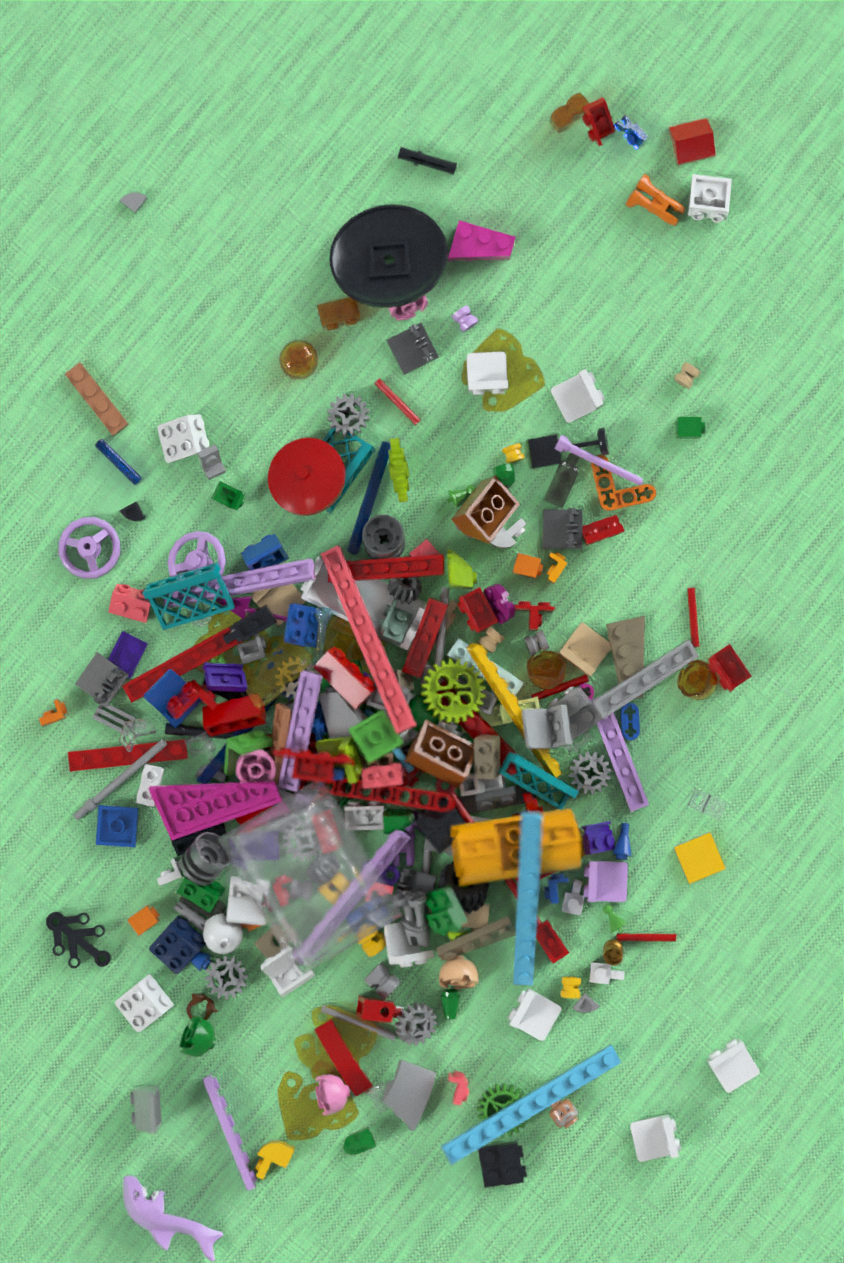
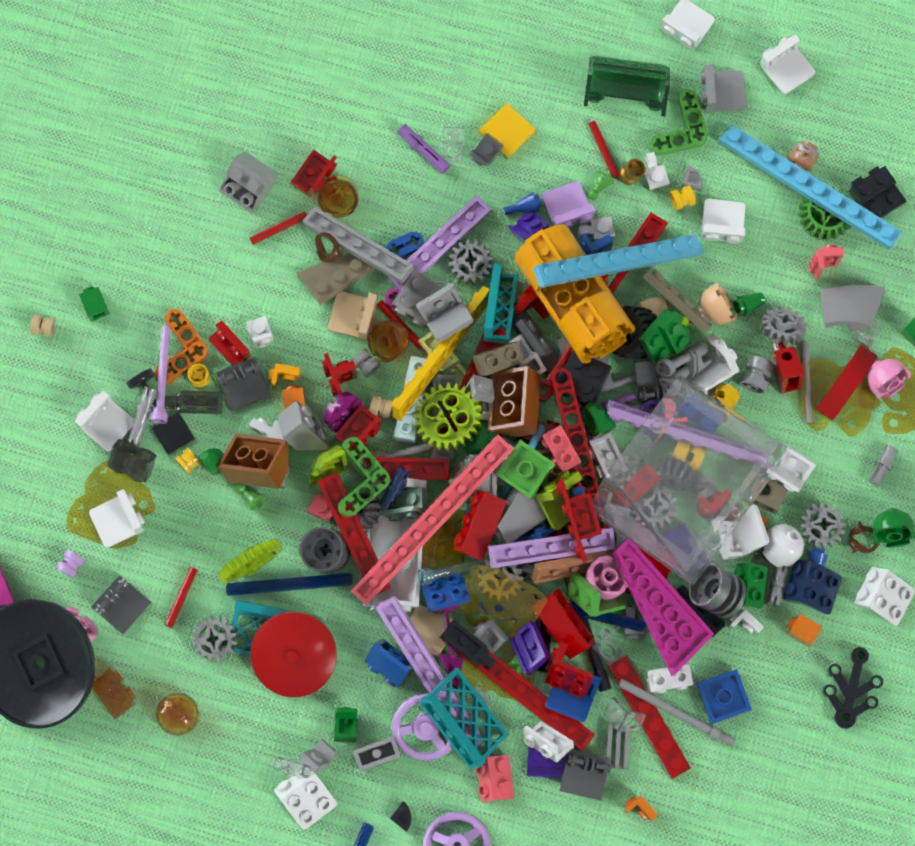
camera: 115 degrees left, 10 degrees down
(141, 659) = (547, 741): none -> white bracket
(192, 511) = (377, 754): none -> light grey brick
(210, 436) = (292, 767): none -> clear pin
(256, 1055) = (883, 465): none -> light grey axle
(411, 619) = (394, 488): none -> dark blue pin
(429, 602) = (368, 474): none -> bright green beam
(465, 730) = (481, 388): none -> light grey bracket
(496, 562) = (303, 429): none -> light grey slope
(532, 405) = (131, 460): none -> clear smoke brick
(574, 434) = (142, 415): none -> light grey pin
(585, 493) = (199, 372): none -> yellow wheel
(603, 562) = (260, 332): none -> white bracket
(628, 1018) = (686, 134): none -> bright green beam
(654, 646) = (322, 254): none -> reddish brown piece
(656, 1069) = (722, 90): none -> light grey bracket
(687, 830) = (486, 150): none -> dark grey bracket
(701, 987) = (628, 81): none -> clear green windscreen
(733, 765) = (417, 142): none -> medium lavender pin
(746, 607) = (248, 181): none -> light grey slope

